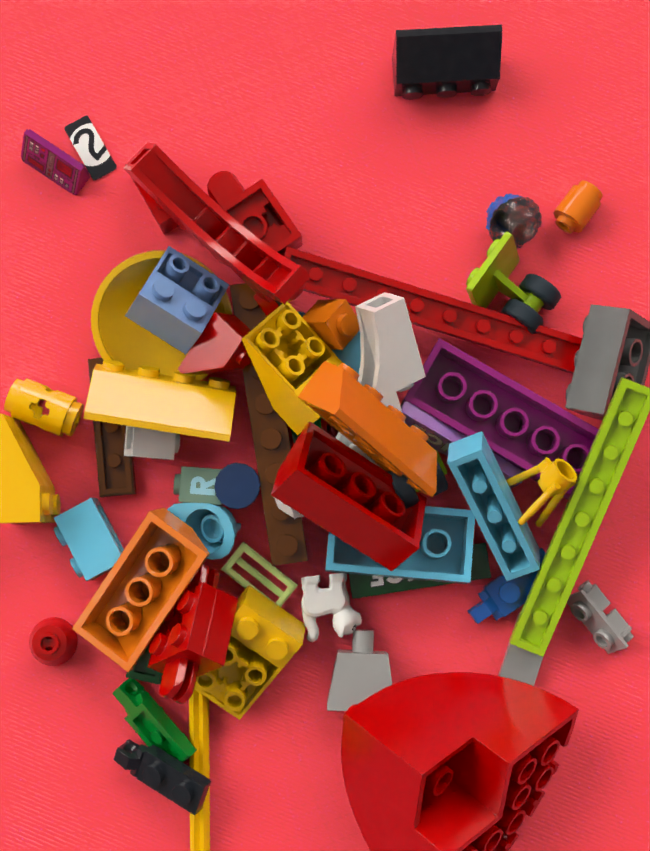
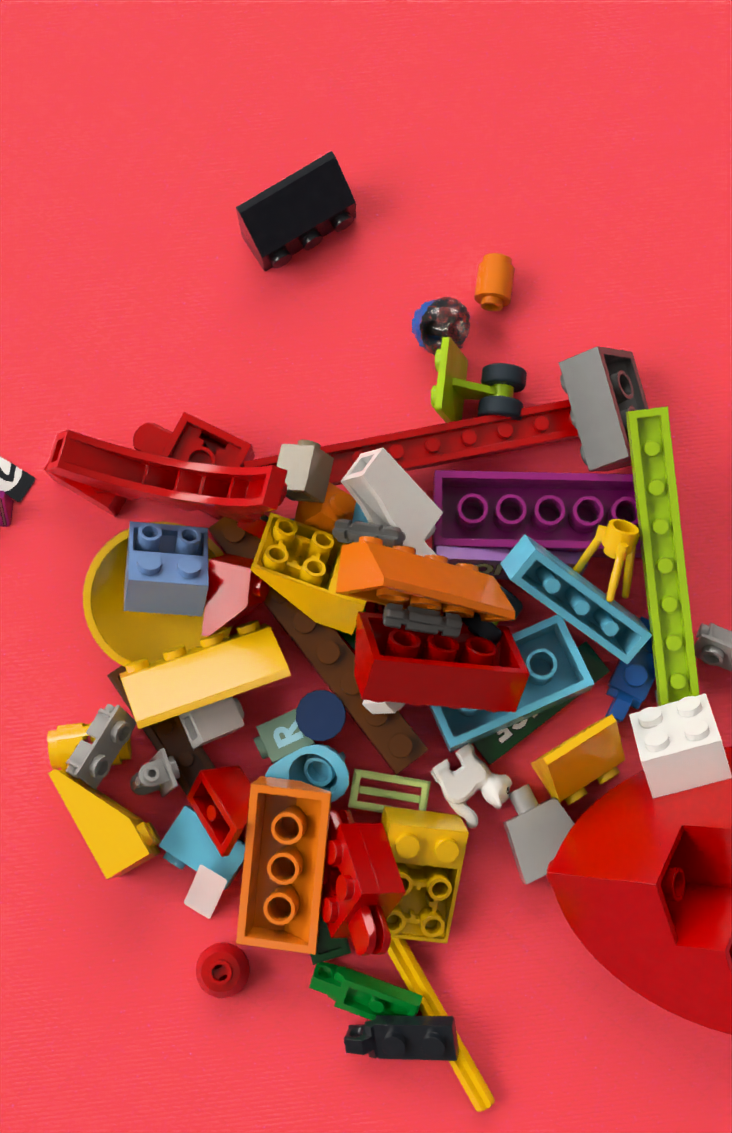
camera: 25 degrees left, 5 degrees down
(36, 423) = (93, 761): none -> light grey hinge
(71, 573) = (205, 891): none -> white sticker
(82, 461) = (156, 775): none -> light grey hinge
(120, 512) = (221, 804): none -> red slope
(330, 281) = (307, 470): none -> dark tan brick
(346, 354) = (347, 532): none -> dark grey axle
(356, 457) = (422, 620): none -> dark grey axle
(425, 636) = (581, 760): none -> yellow slope
(510, 671) = (680, 746): none -> white brick

